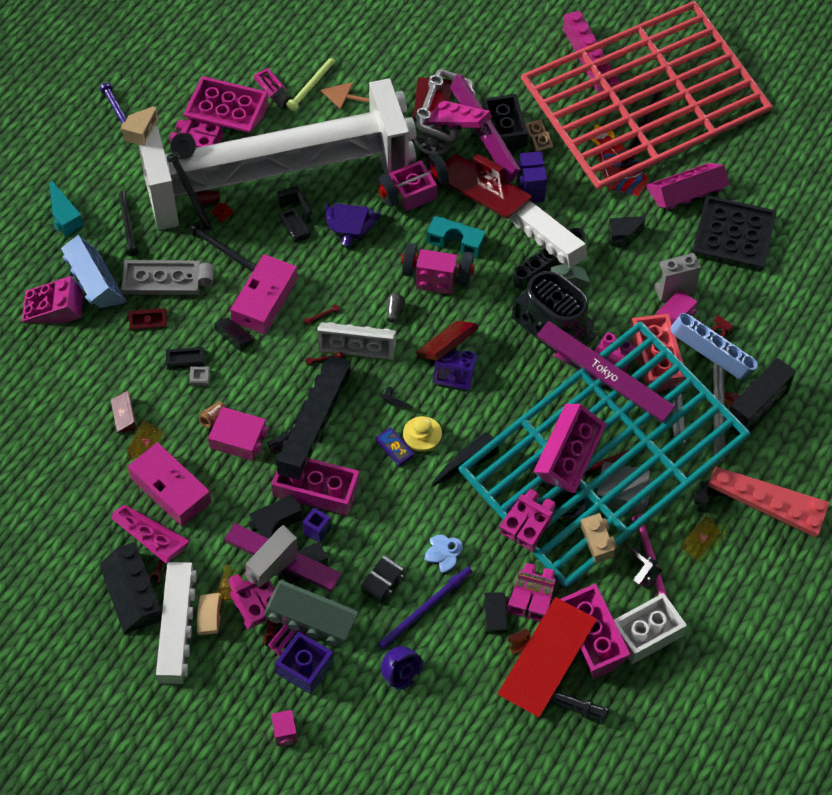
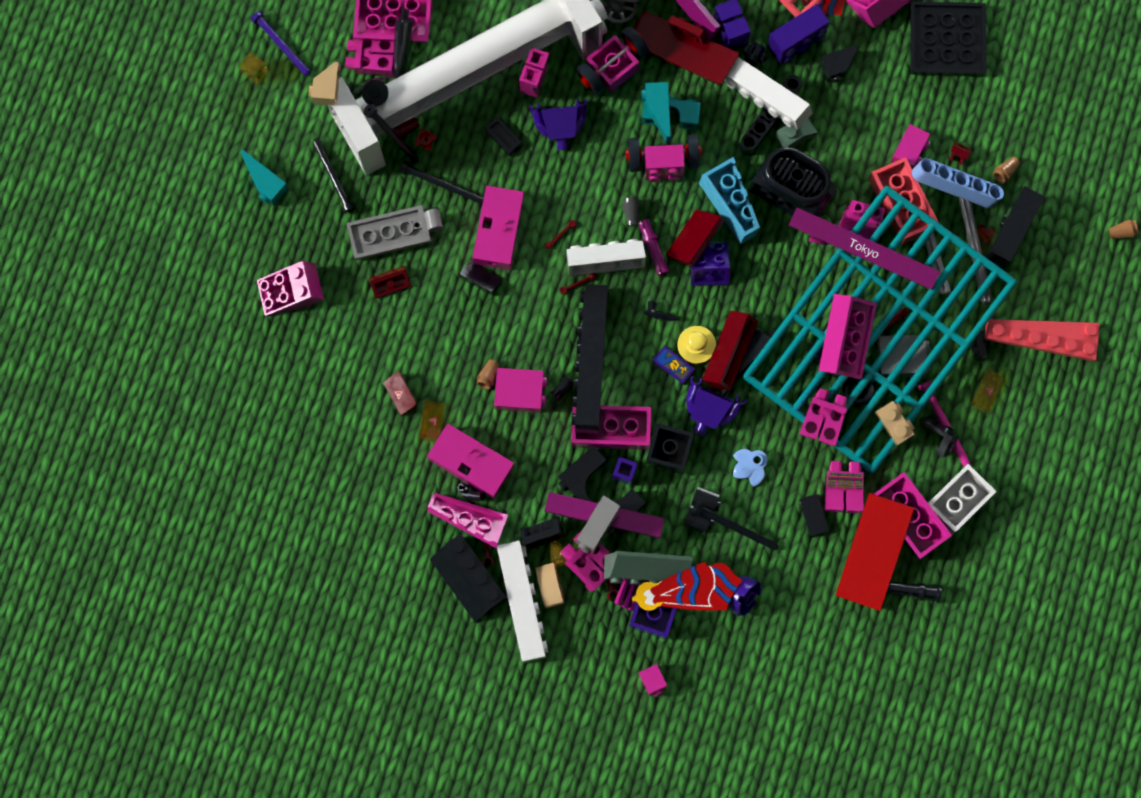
camera: 10 degrees left, 20 degrees up
(87, 123) = (253, 68): none -> clear yellow brick
(92, 273) = (320, 248): light blue slope -> none
(158, 512) = (469, 492): none -> black arm
(185, 357) = (440, 317): black tile -> none
(199, 376) = (461, 334): light grey tile -> none
(217, 565) = (542, 533): none -> black hinge
(227, 120) = (402, 42): none -> black piece
(293, 195) = (487, 106): black bracket -> none
(338, 173) = (534, 72): none -> dark pink hips
(348, 643) = (691, 589): none -> red sticker
(368, 515) = (670, 448): none -> black slope
(378, 572) = (699, 509): none -> black bar
(406, 344) = (650, 240): none -> magenta pin
(419, 489) = (710, 407): none -> dark purple torso
(444, 220) = (657, 104): none -> teal slope
(452, 443) = (730, 350): none -> dark red brick
(454, 582) = (768, 495): dark purple bar -> none
(490, 314) = (730, 199): none -> medium azure wedge
(518, 641) = (844, 540): clear red tile -> none
(549, 205) = (754, 53): none -> black gear
(592, 197) = (798, 35): none -> dark purple brick
(678, 274) = (905, 111): light grey panel -> none
(765, 350) = (1006, 170): none -> medium nougat cone

